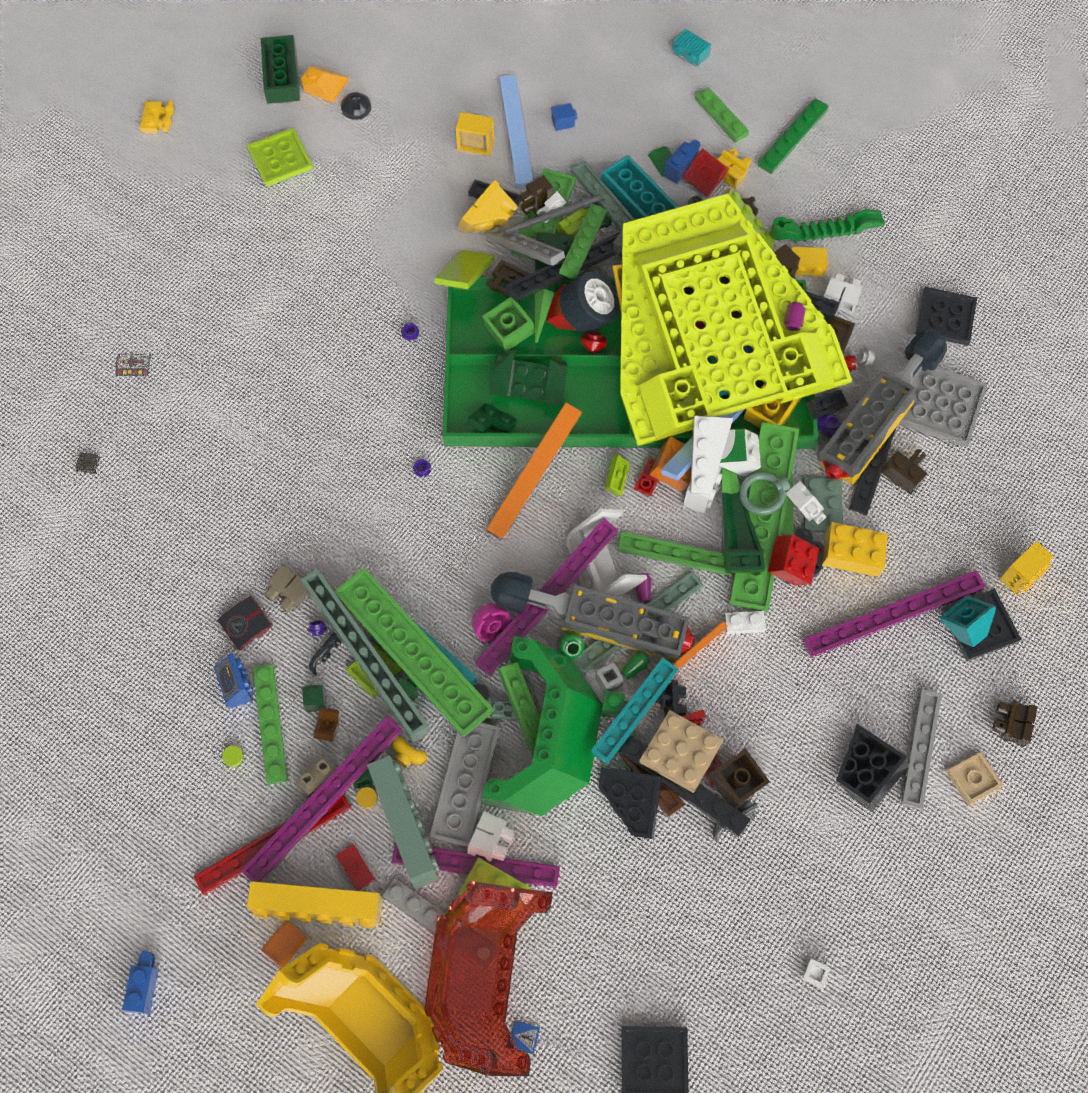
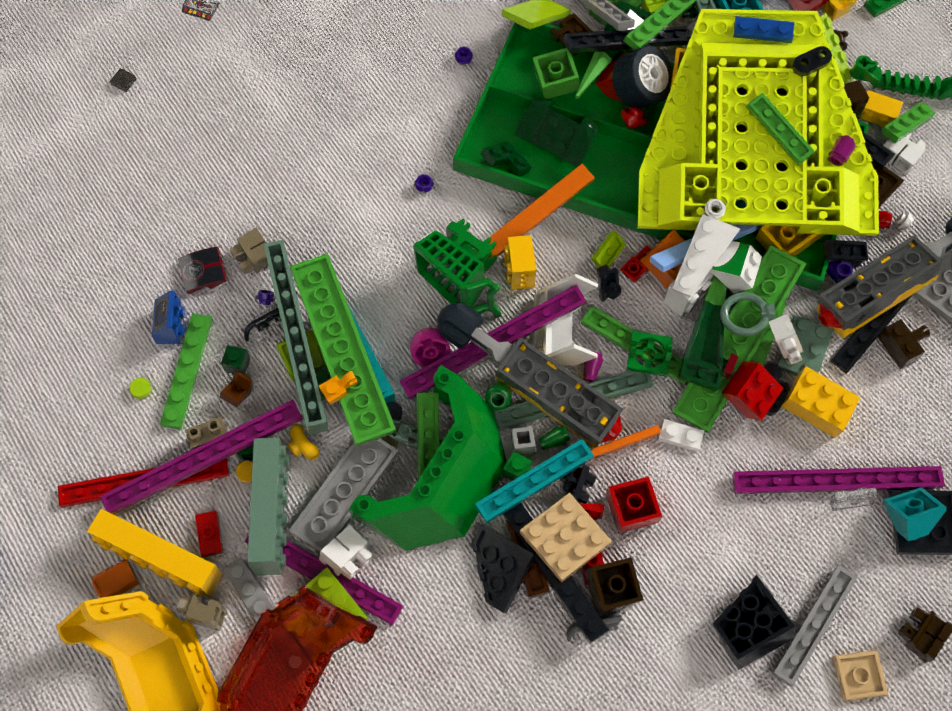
camera: 20 degrees right, 0 degrees up
(381, 942) = (201, 614): none -> dark tan hips
(423, 691) = (336, 389): none -> light orange plate
(493, 529) = (463, 258): none -> green piece
(542, 513) = (520, 262): none -> yellow piece
(629, 505) = (608, 283): none -> black hips
(686, 226) = (763, 29): none -> blue plate
(699, 542) = (634, 365): none -> green piece
(708, 403) = (715, 203): none -> white plate
(728, 700) = (633, 504): none -> red brick
(735, 315) = (780, 129): none -> bright green tile
(742, 243) = (813, 61): none -> black plate
(767, 545) = (730, 366): none -> dark red tile
(837, 266) = (908, 122): none -> bright green plate
(917, 624) = (853, 499): none -> clear plate

